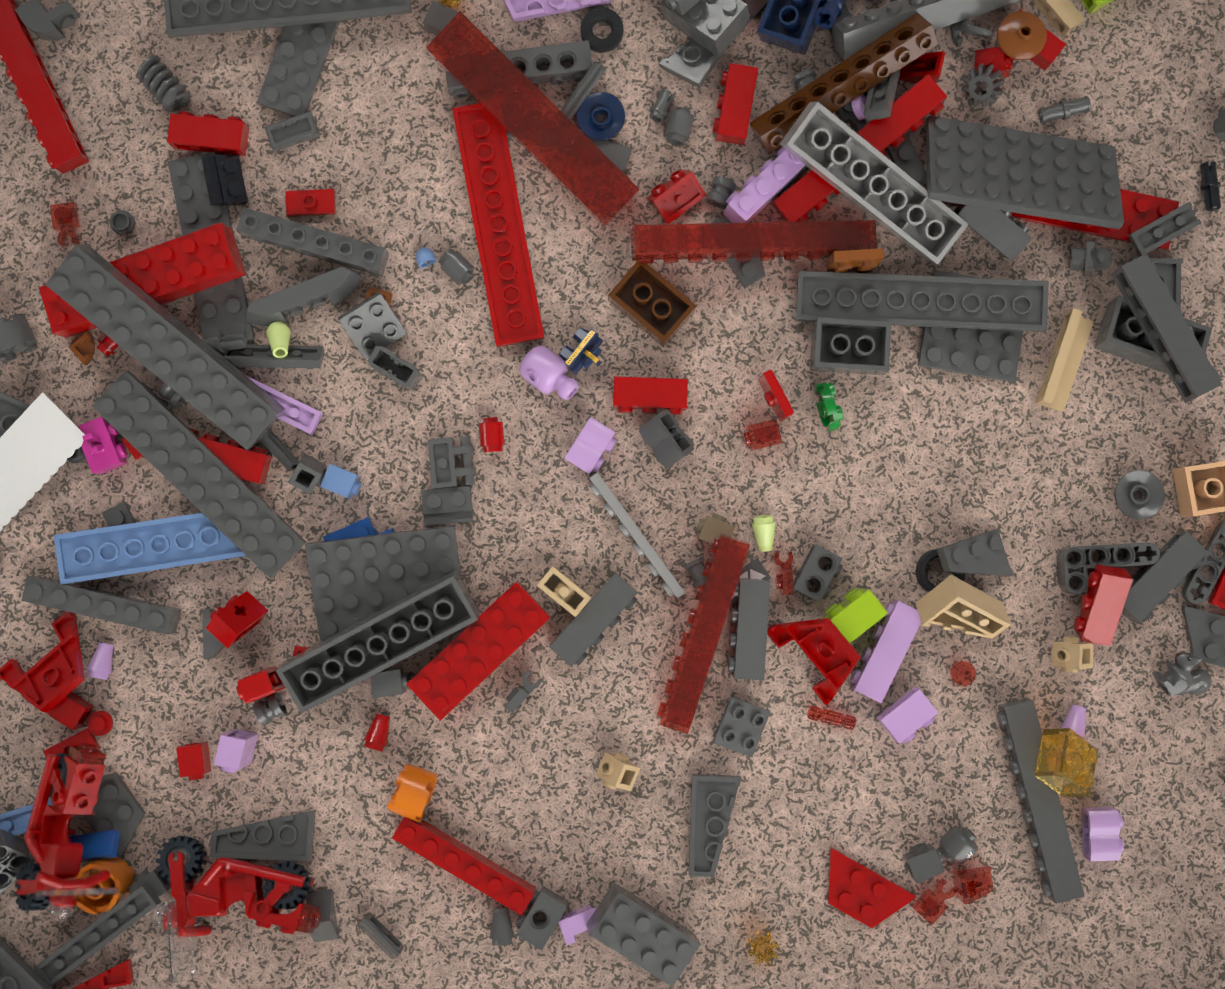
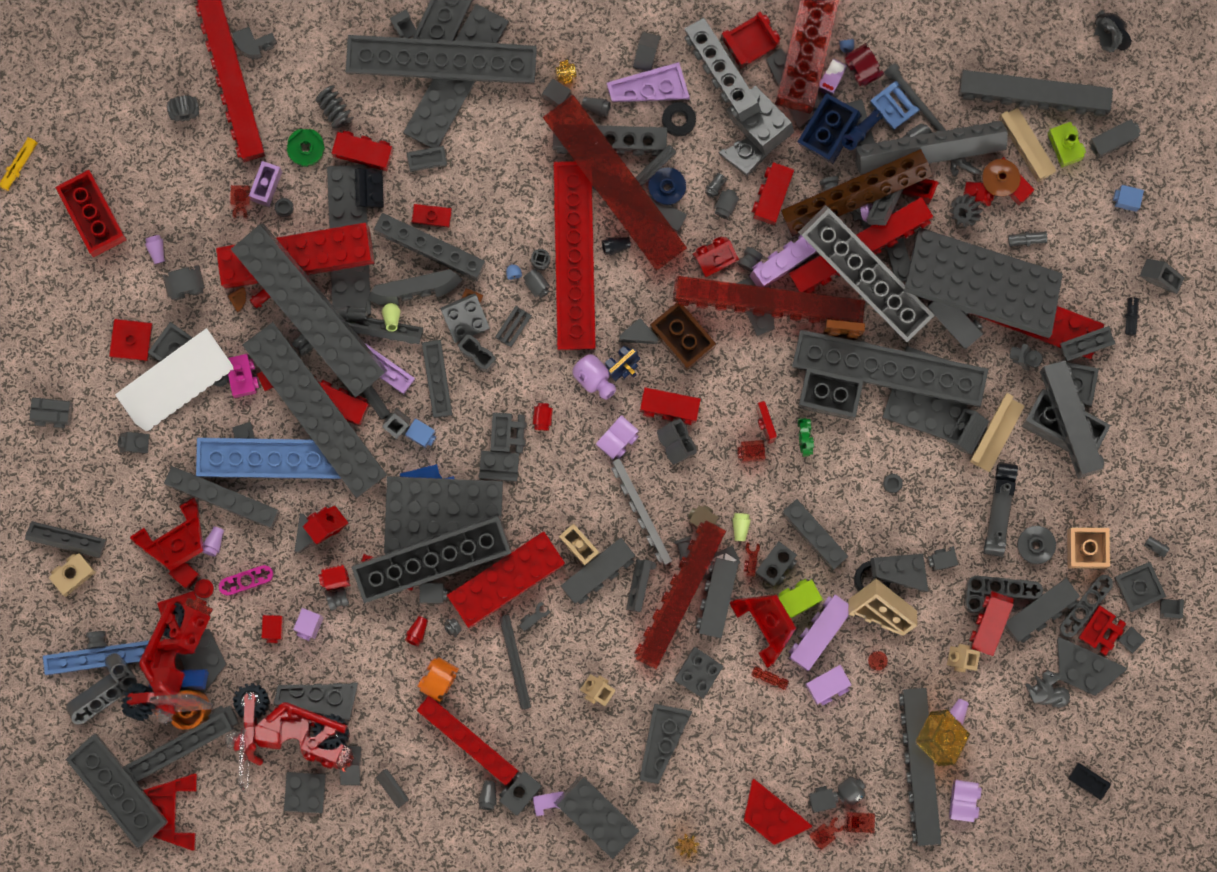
camera: 10 degrees right, 5 degrees down
(90, 195) = (265, 184): none -> lavender brick
(132, 706) = (234, 590): none -> dark pink beam
(146, 151) = (316, 147): none -> green plate
(270, 960) = (304, 792): none -> dark grey plate
(350, 408) = (437, 379): none -> dark grey plate
(421, 720) = (452, 627): none -> dark grey plate
(444, 307) = (508, 320): none -> dark grey tile
(458, 240) = (542, 262): none -> dark grey wheel
(496, 29) = (597, 105): none -> dark grey cone
(508, 751) = (515, 662): none -> dark grey axle
(547, 202) = (614, 245): none -> black cone
(596, 309) = (638, 333): none -> dark grey slope
(648, 628) = (639, 584): none -> dark grey hinge
(859, 528) = (814, 534): none -> dark grey brick
(945, 446) = (892, 483): none -> dark grey tile
(1025, 532) = (943, 559): none -> dark grey brick
(1031, 365) = (968, 431): none -> dark grey brick
(1086, 433) = (1000, 510): none -> dark grey piece
(1183, 37) = (1128, 198): none -> medium blue brick

